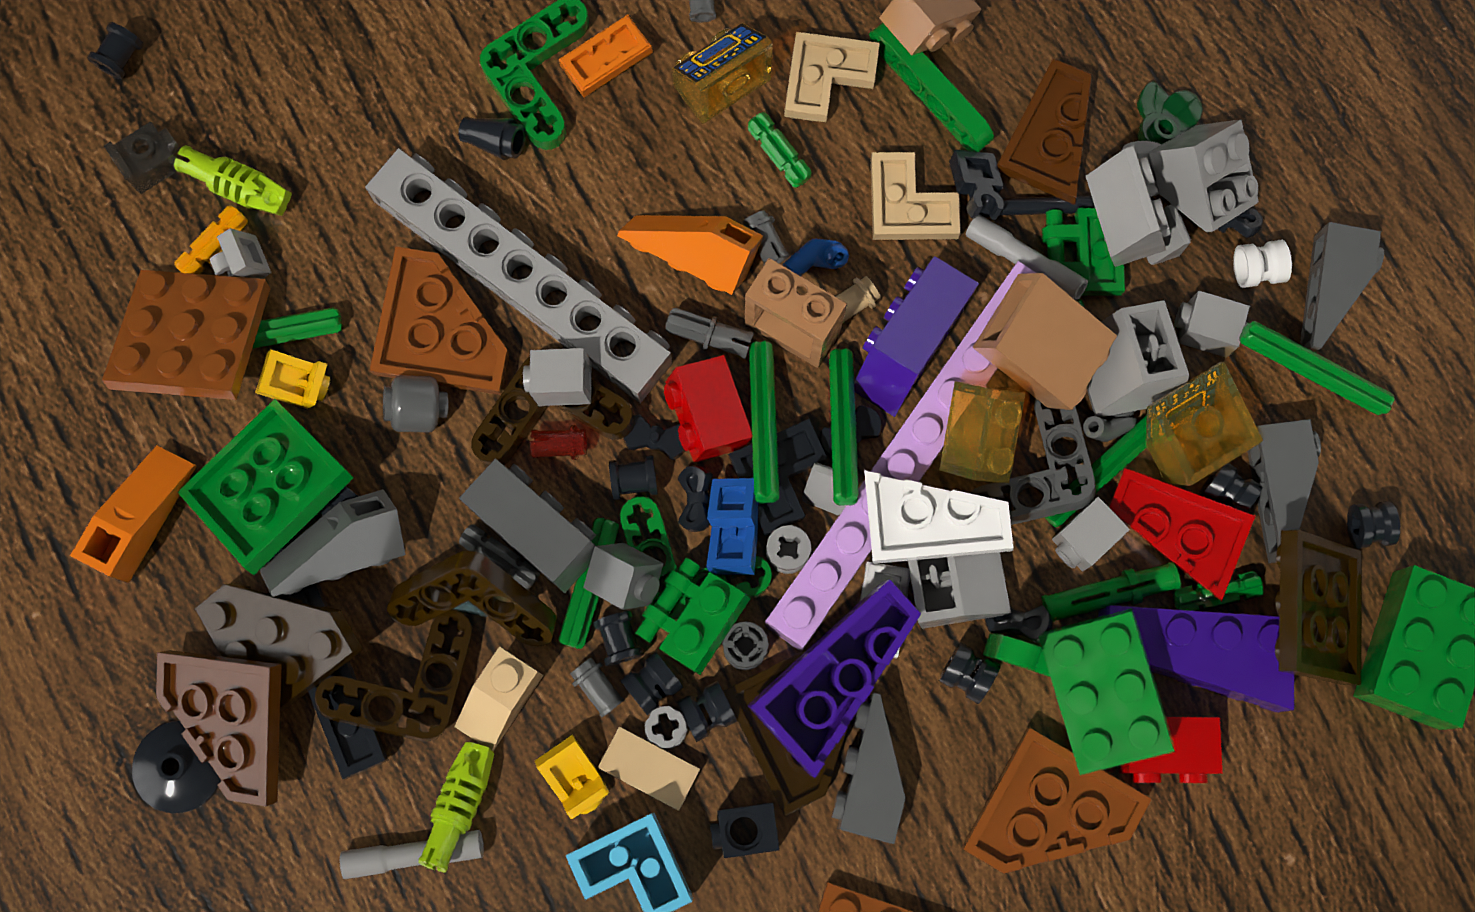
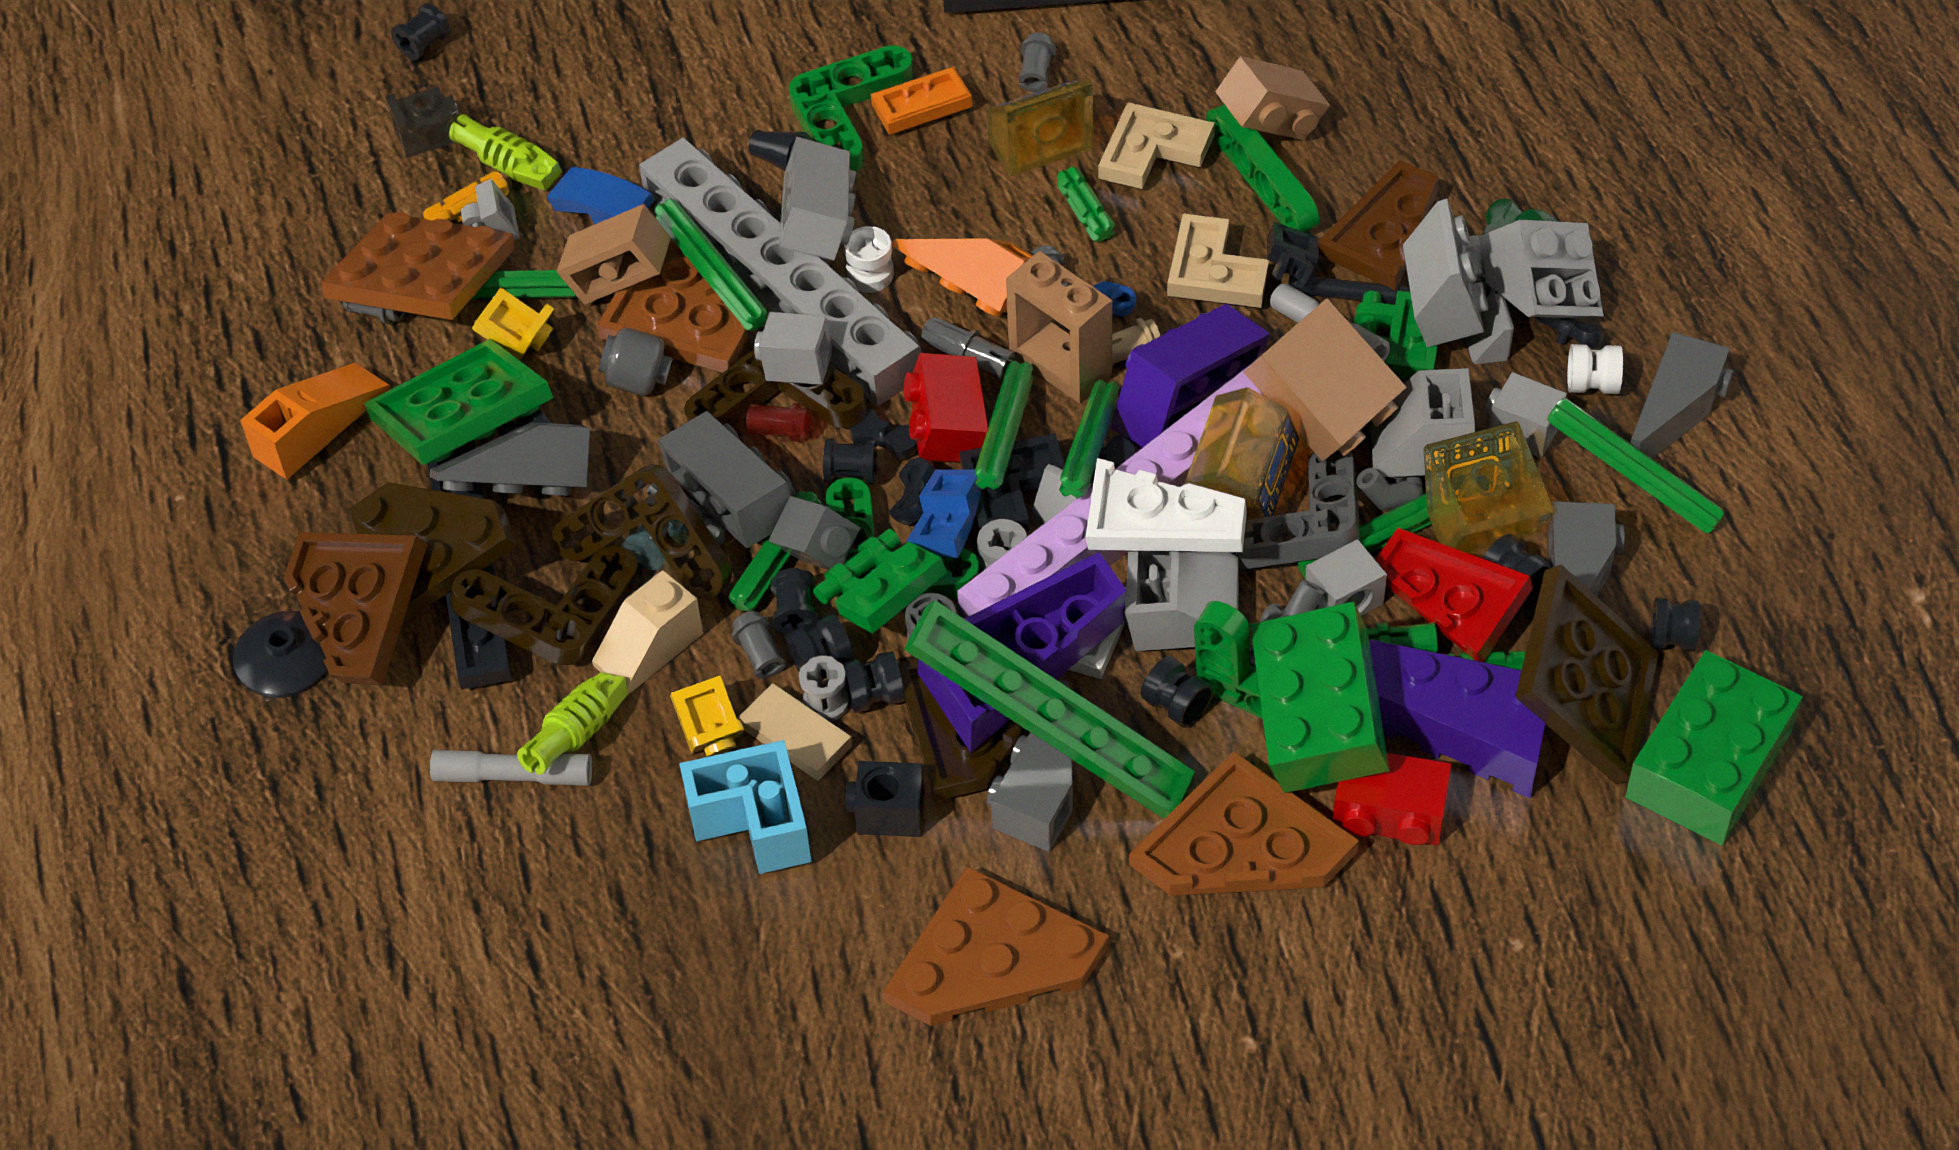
camera: 15 degrees right, 25 degrees down
(336, 218) = (596, 194): none -> blue slope
(367, 295) = (614, 254): none -> medium nougat brick
(459, 289) = (711, 265): none -> green axle
(540, 202) = (817, 199): none -> light grey brick
(597, 241) = (869, 259): none -> white wheel
(874, 751) = (1049, 709): none -> green plate
(1053, 577) = (1303, 600): none -> dark grey arm

